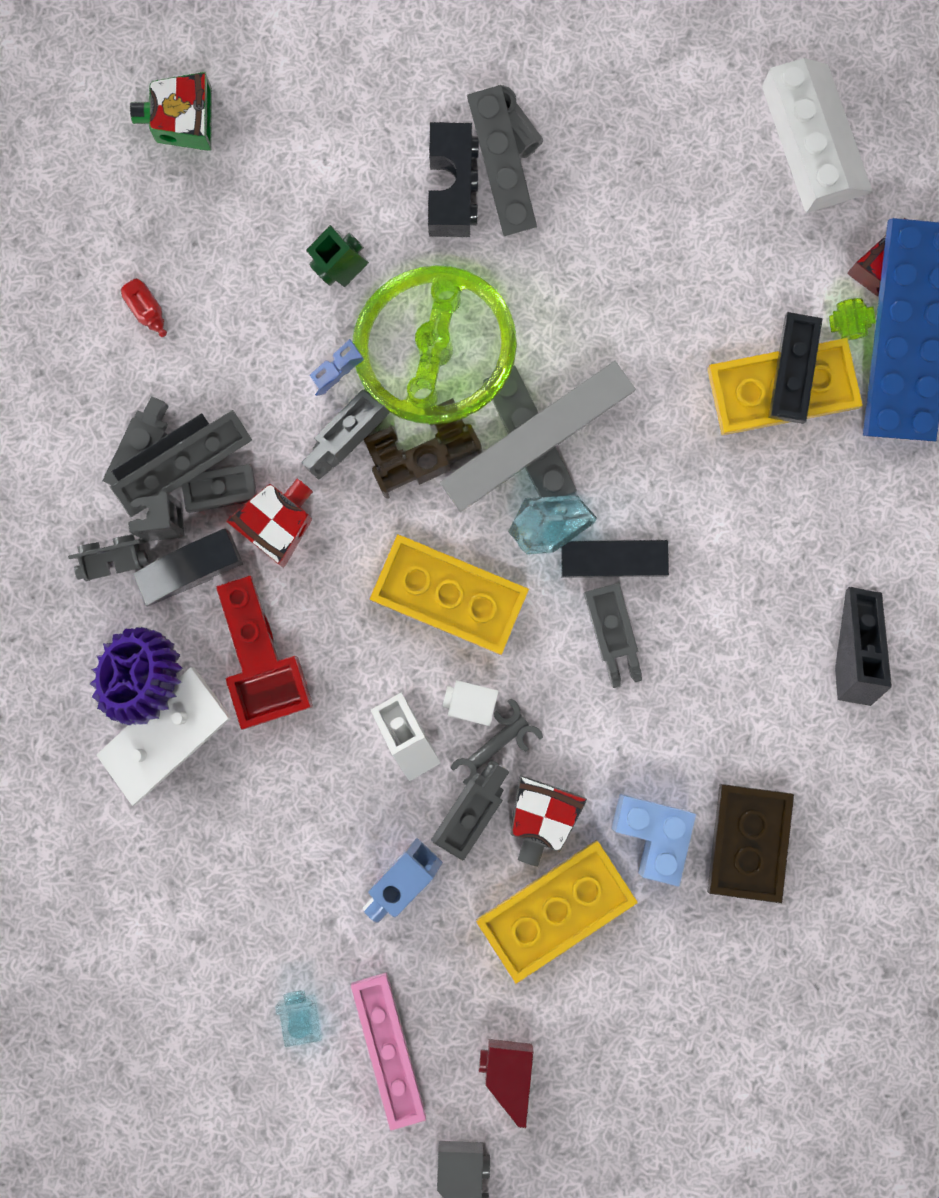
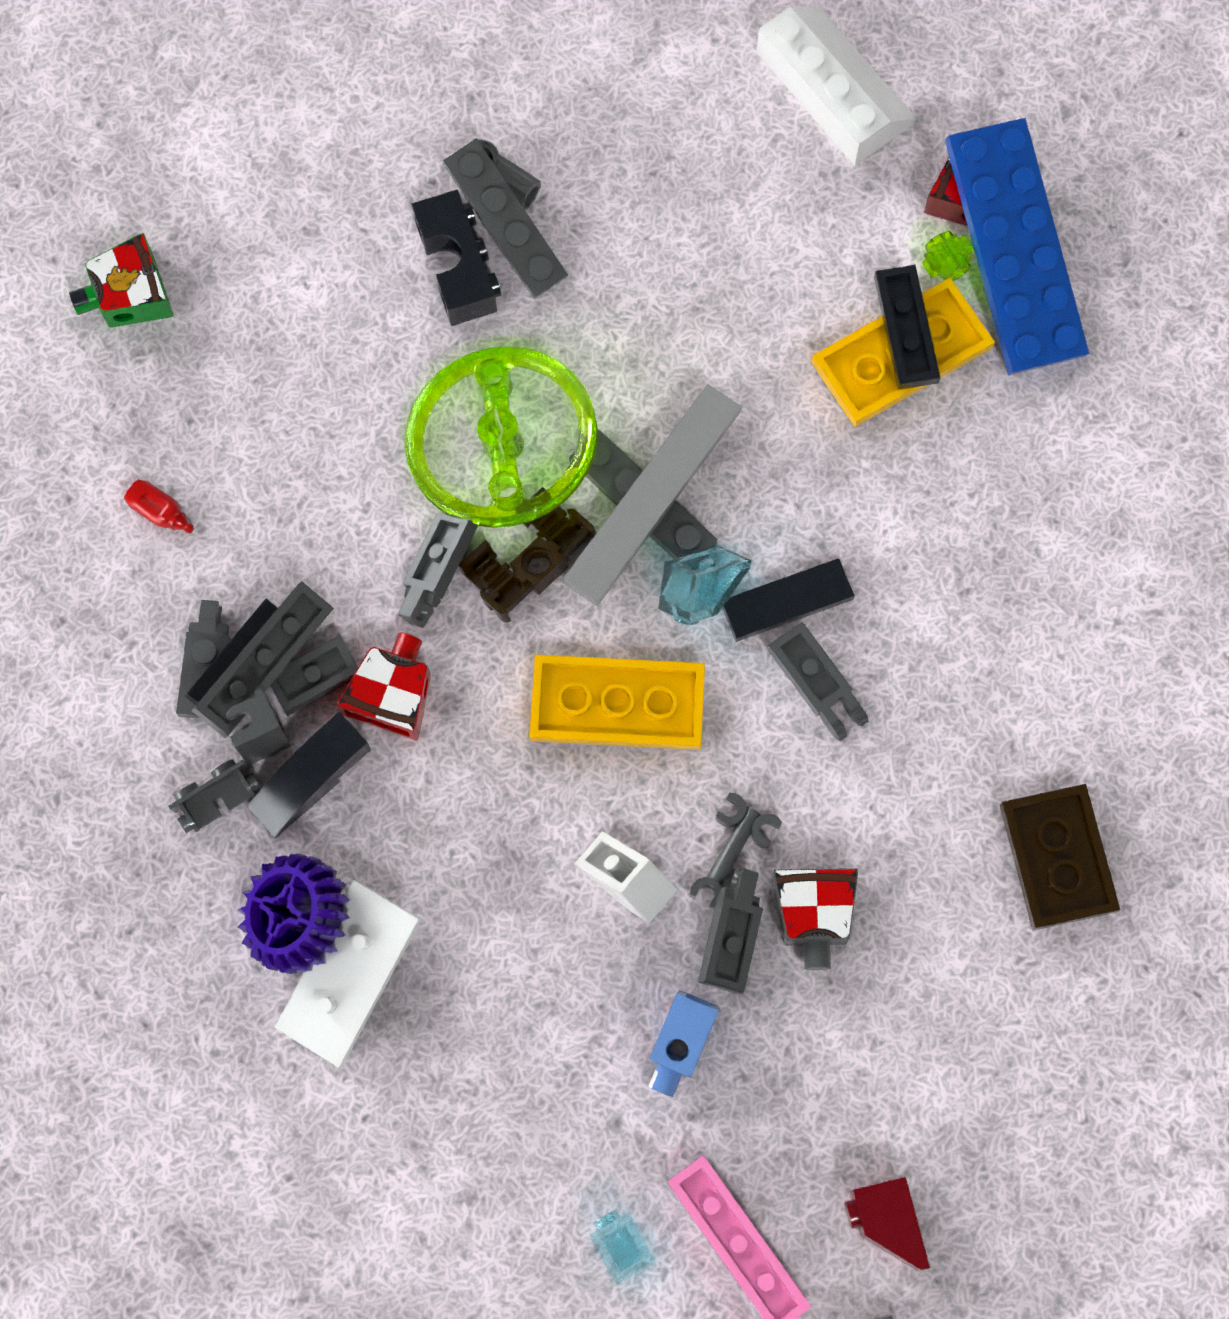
camera: 20 degrees left, 10 degrees down
(267, 685) = (446, 873): red plate -> none
(336, 257) = (359, 378): dark green brick -> none
(337, 368) = (398, 508): piece -> none
(470, 702) = (686, 811): white brick -> none
(556, 911) = (871, 1012): yellow plate -> none
(665, 832) = (956, 874): light blue brick -> none
(862, 650) = (1098, 601): black slope -> none

